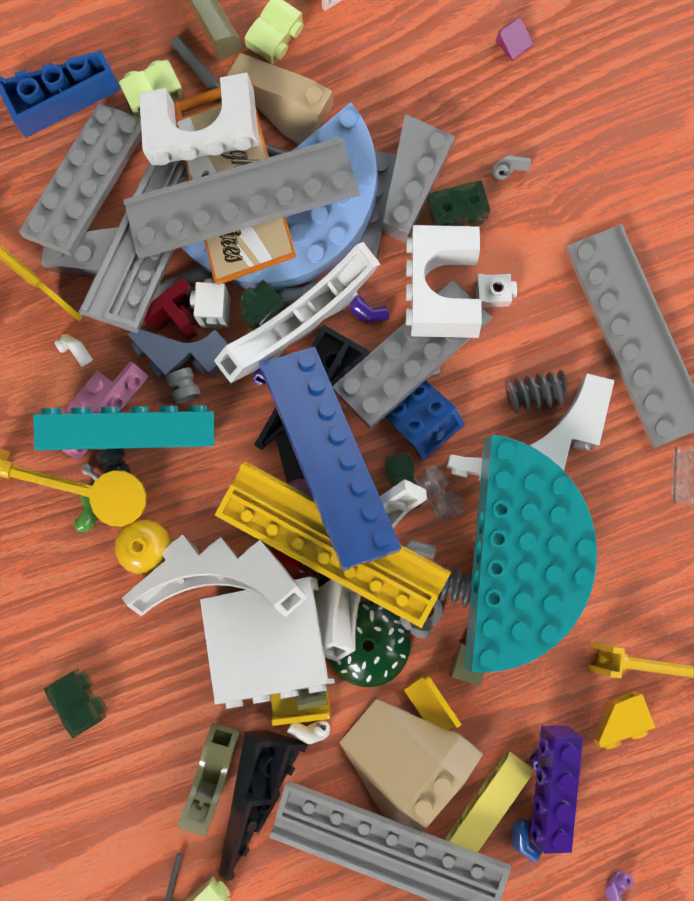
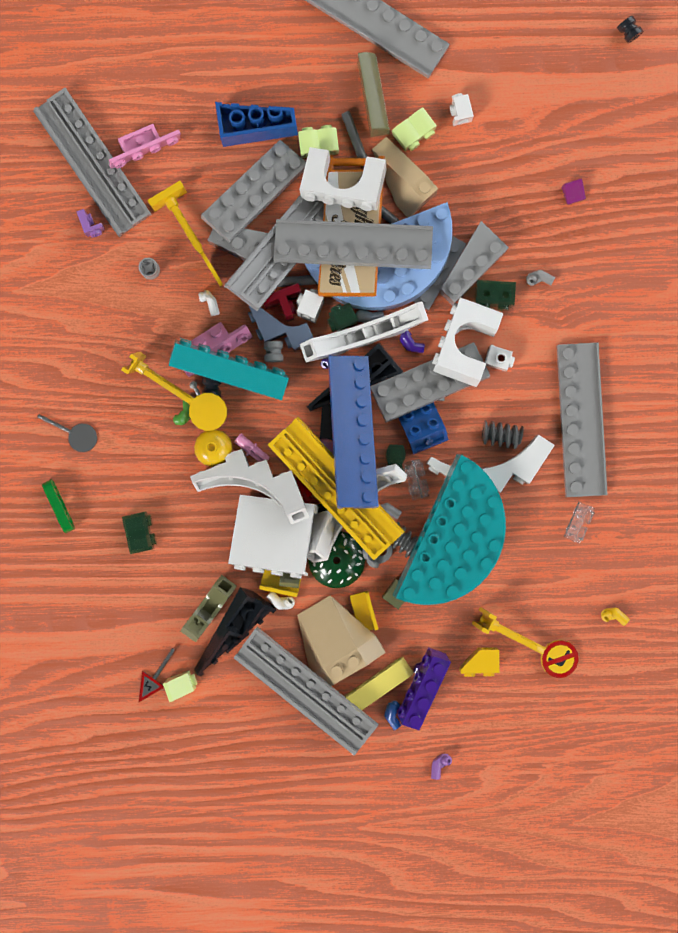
camera: 15 degrees right, 5 degrees up
(195, 529) = (251, 448): none -> bright pink axle

